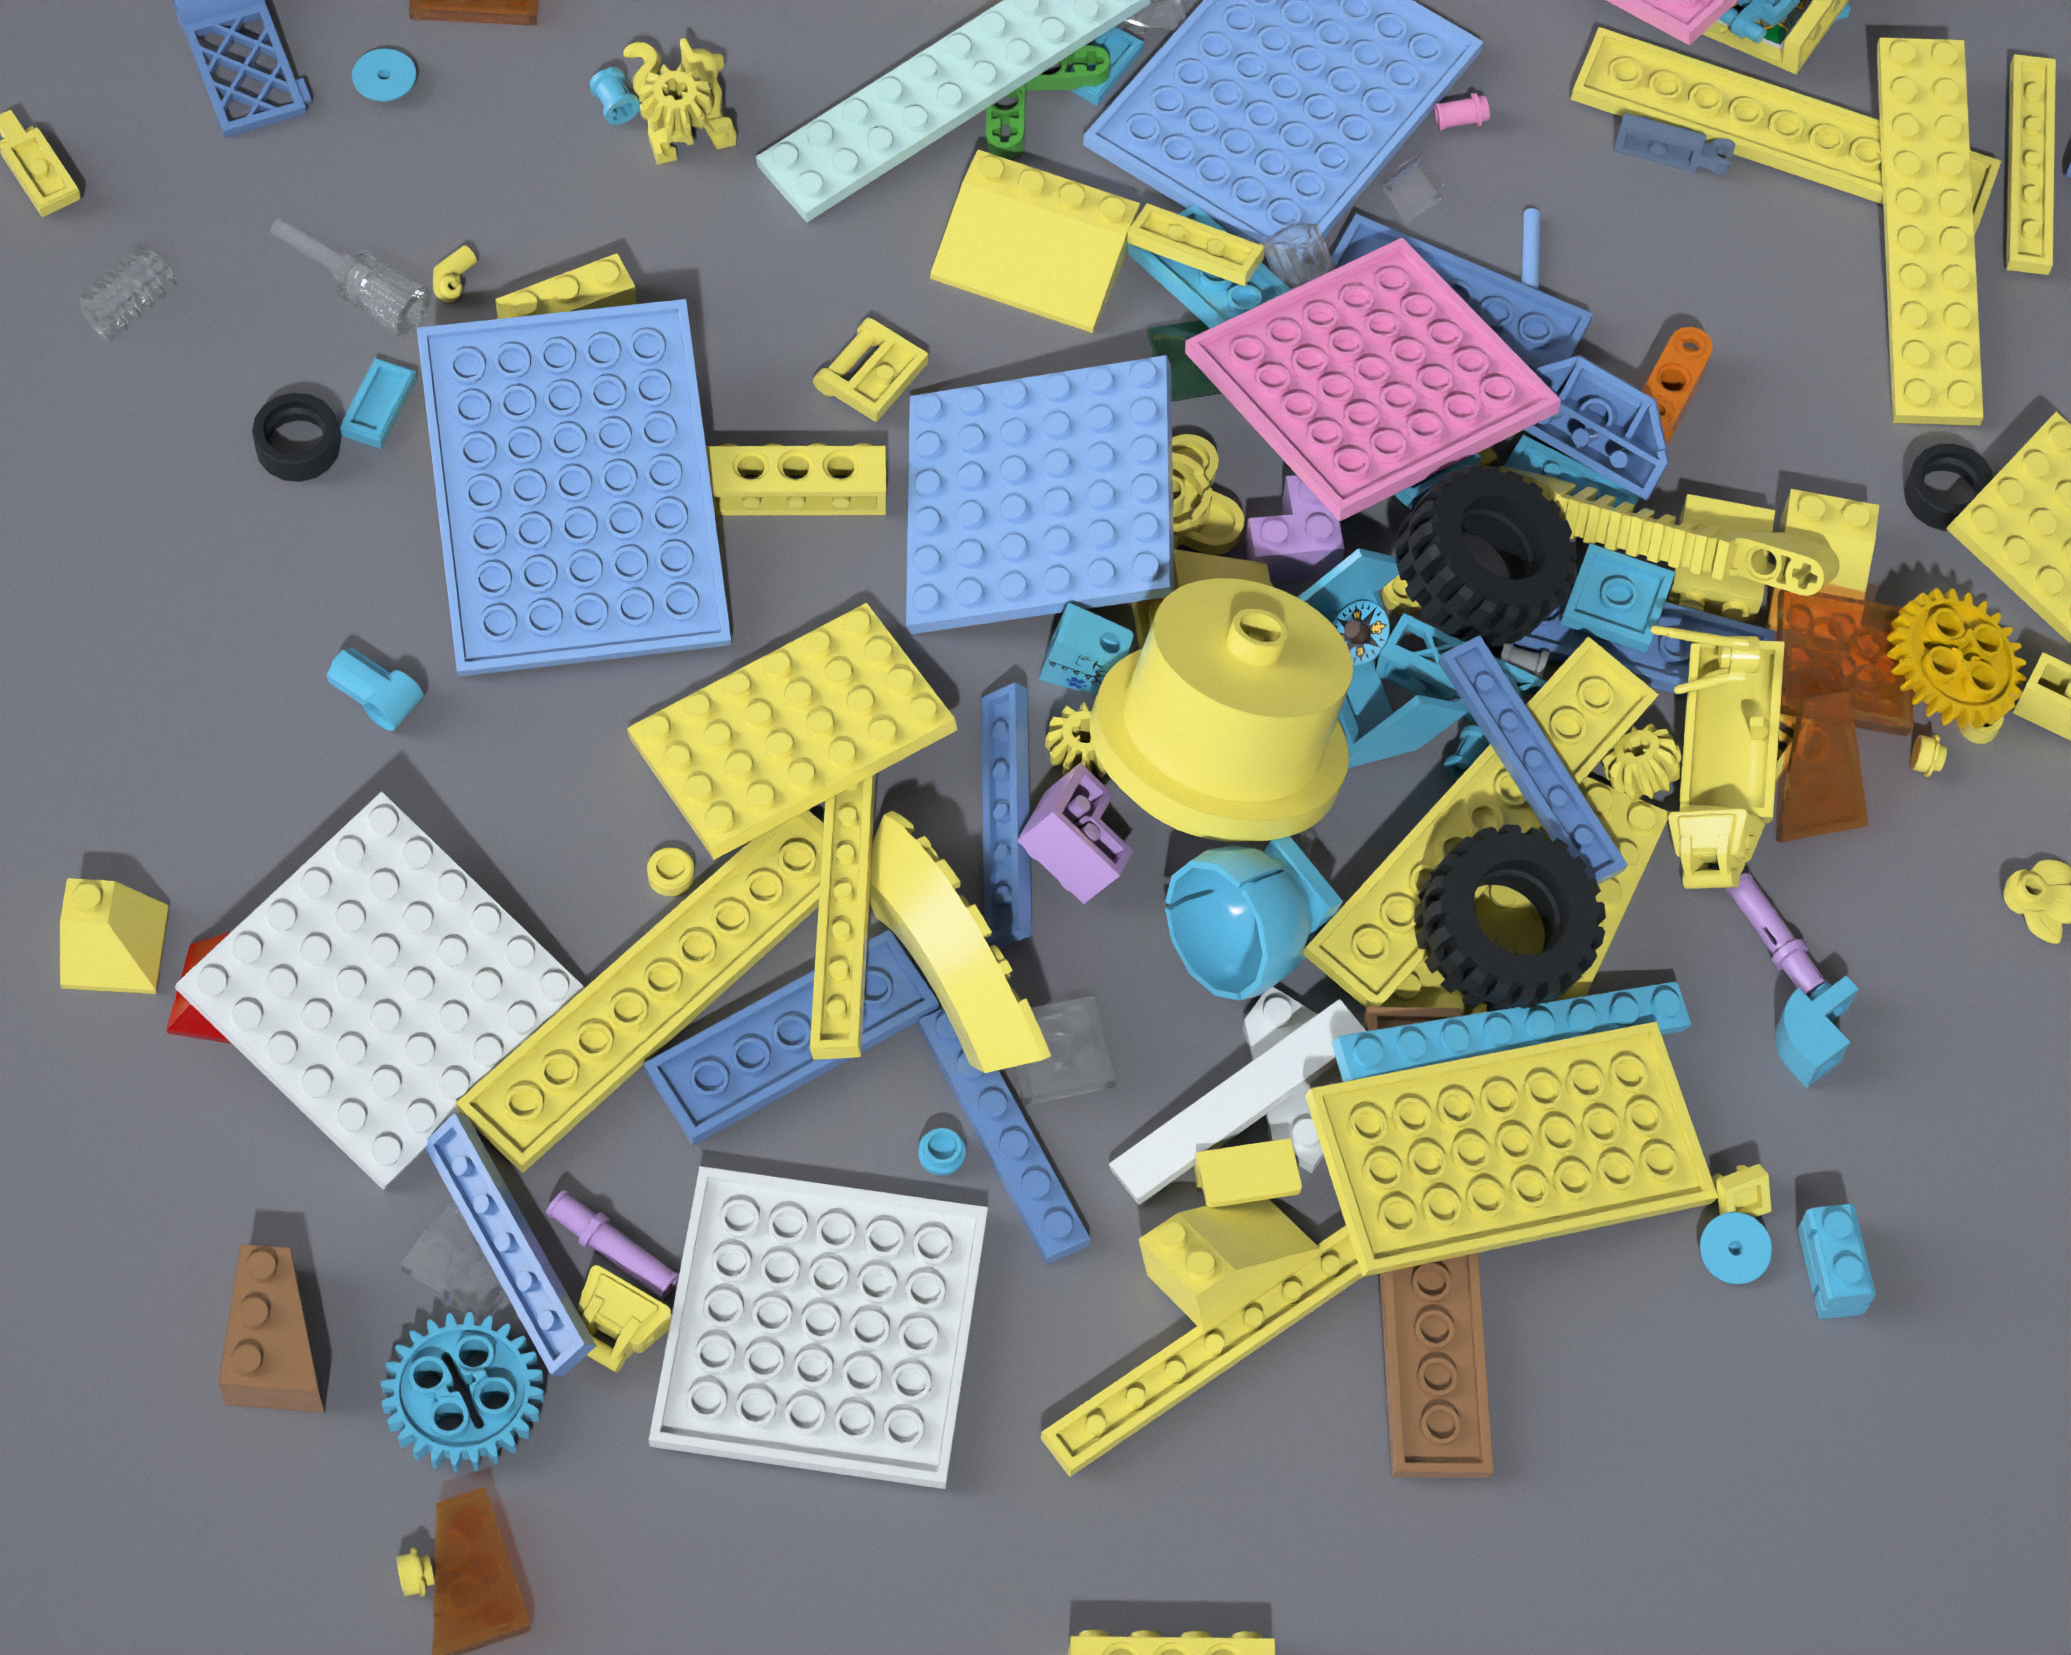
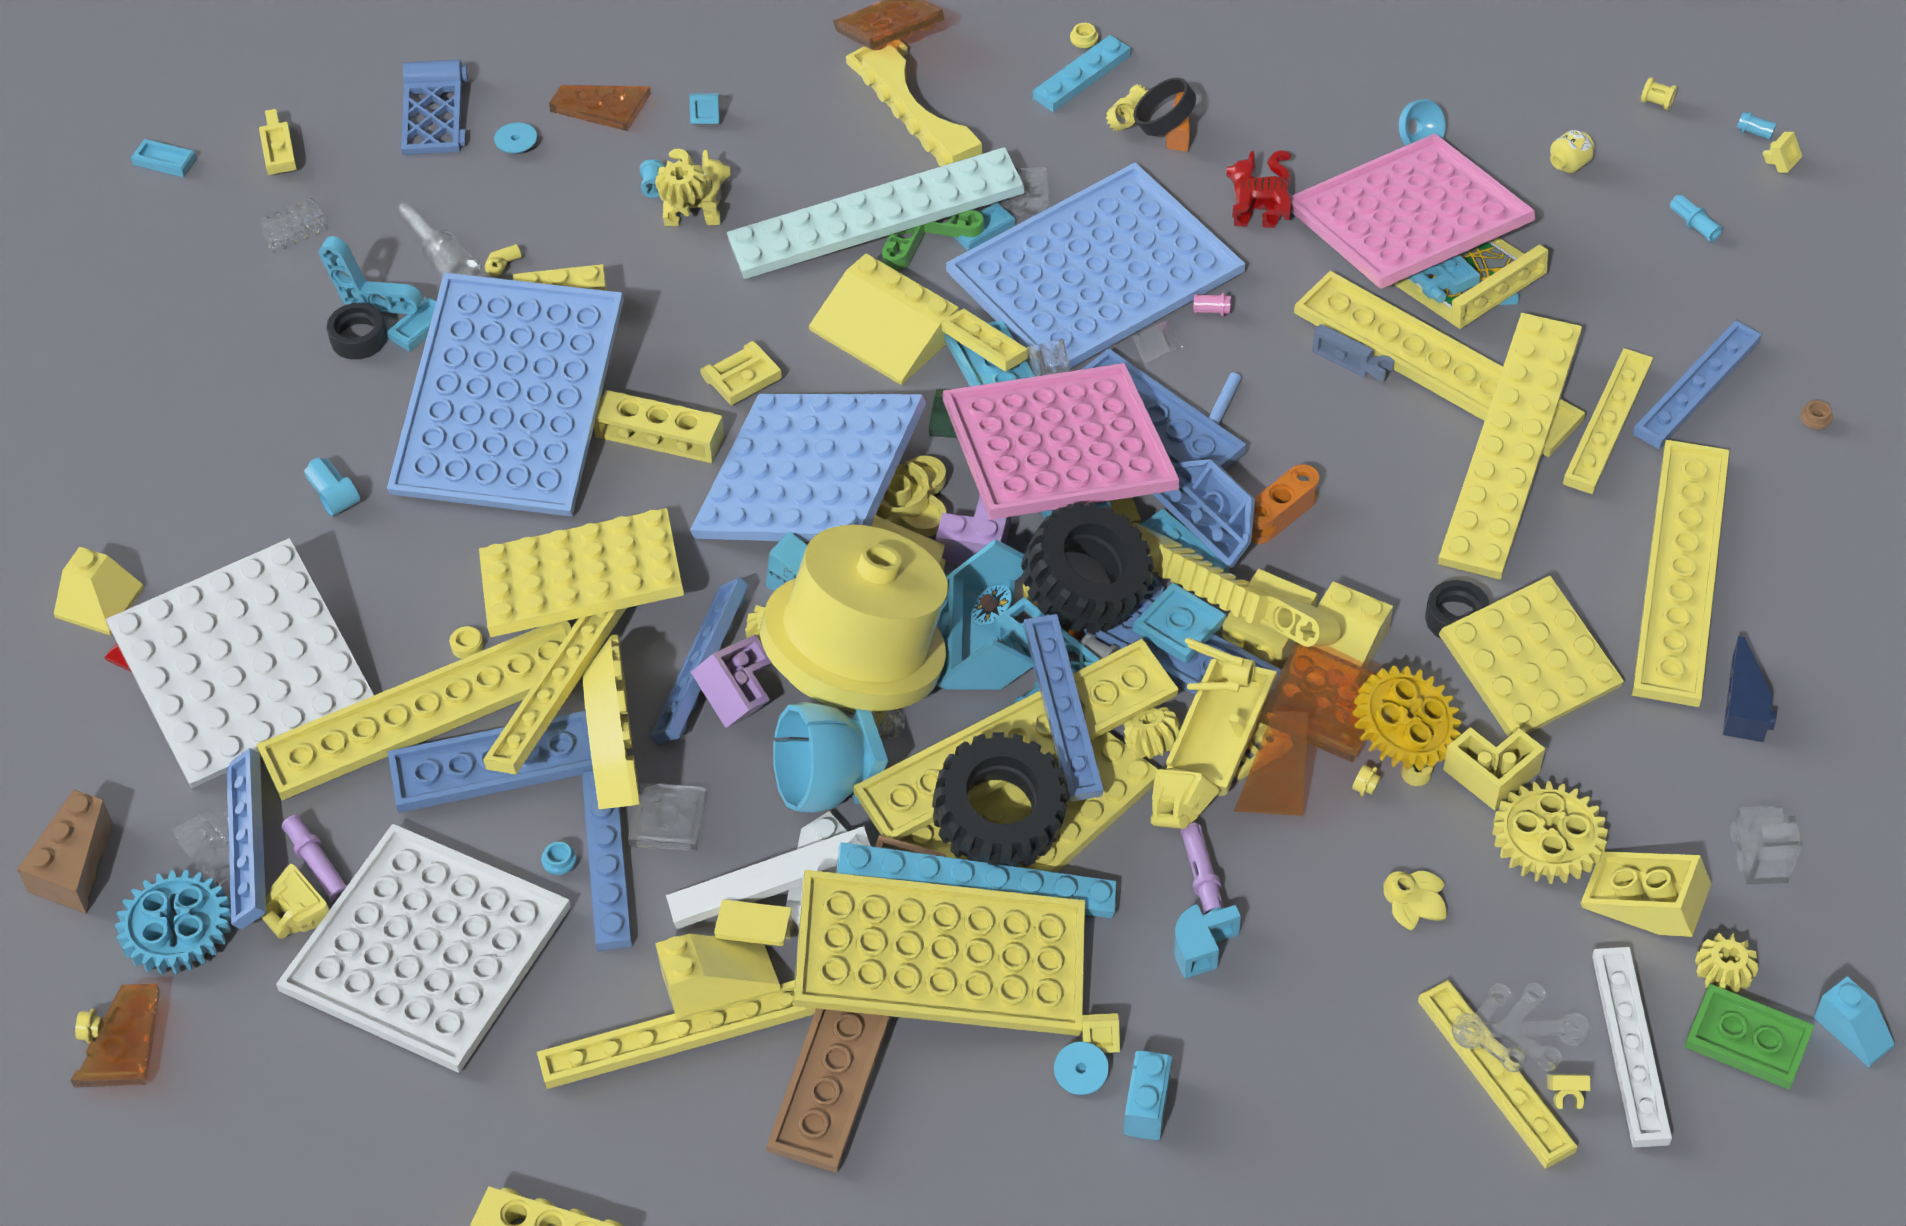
camera: 25 degrees right, 10 degrees down
(271, 376) = (355, 289): none -> medium azure beam

